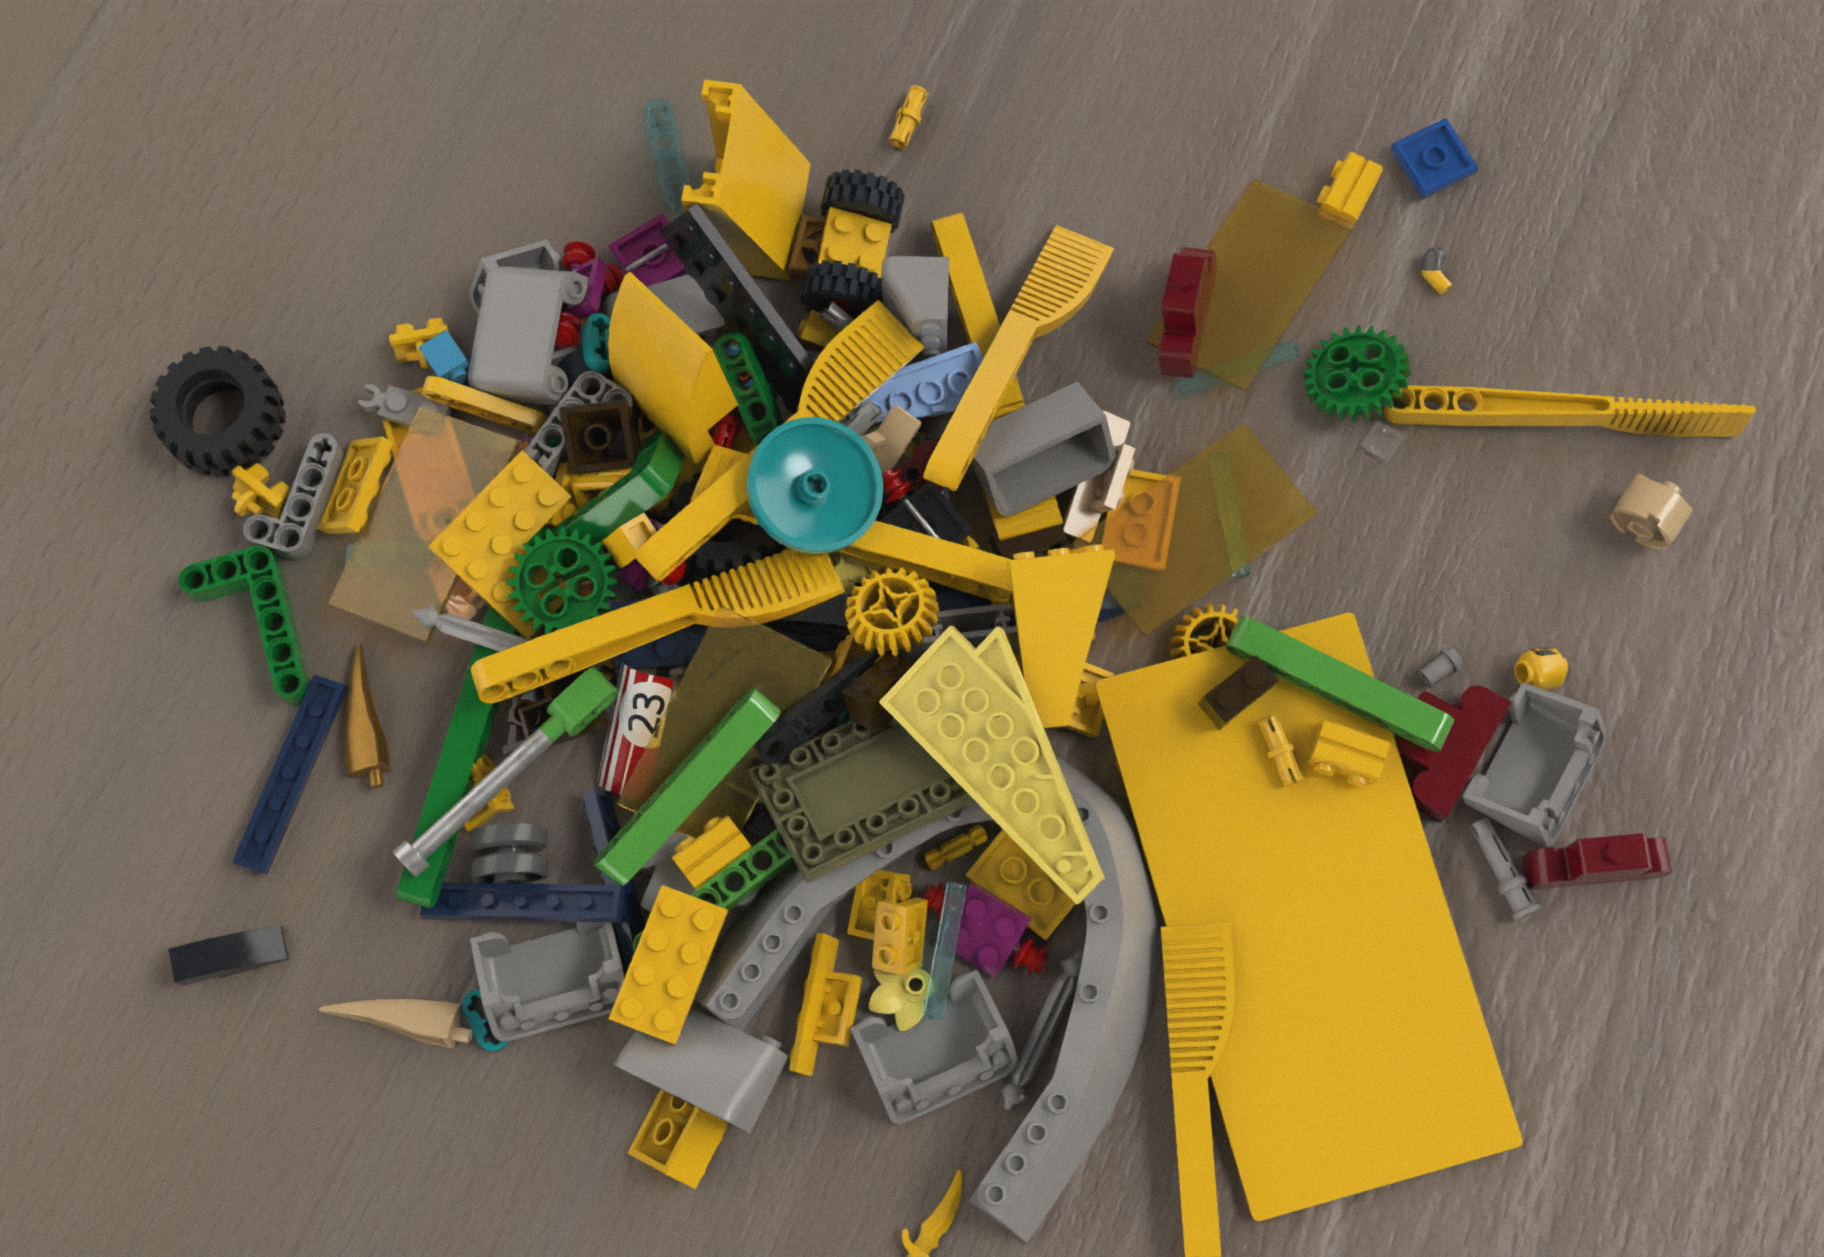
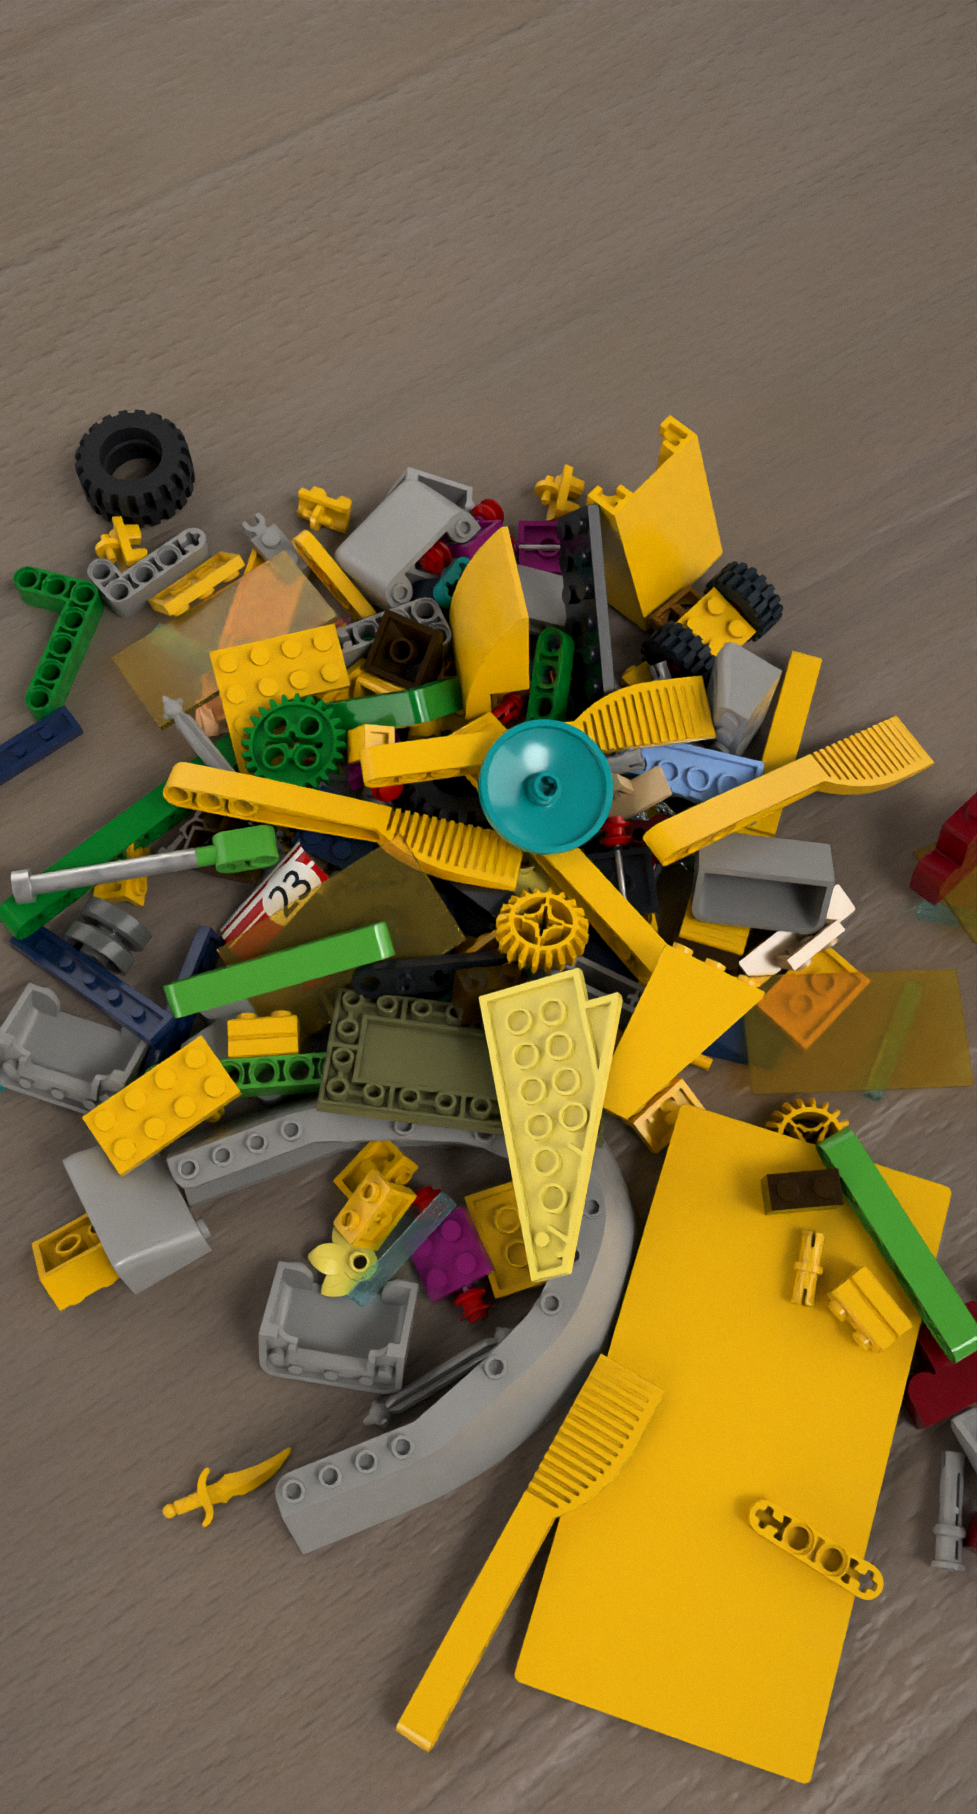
camera: 30 degrees right, 5 degrees down
(364, 738) = (69, 777): pearl gold piece -> none
(446, 358) = (329, 525): dark azure brick -> none
(625, 198) = (557, 491): none -> yellow hips
(666, 155) = (607, 479): clear light blue beam -> none
(826, 1007) = (273, 1230): yellow bracket -> none
(908, 117) = (827, 562): yellow pin -> none
(955, 847) = (473, 1169): yellow axle -> none
(1420, 966) = (814, 1548): none -> yellow beam

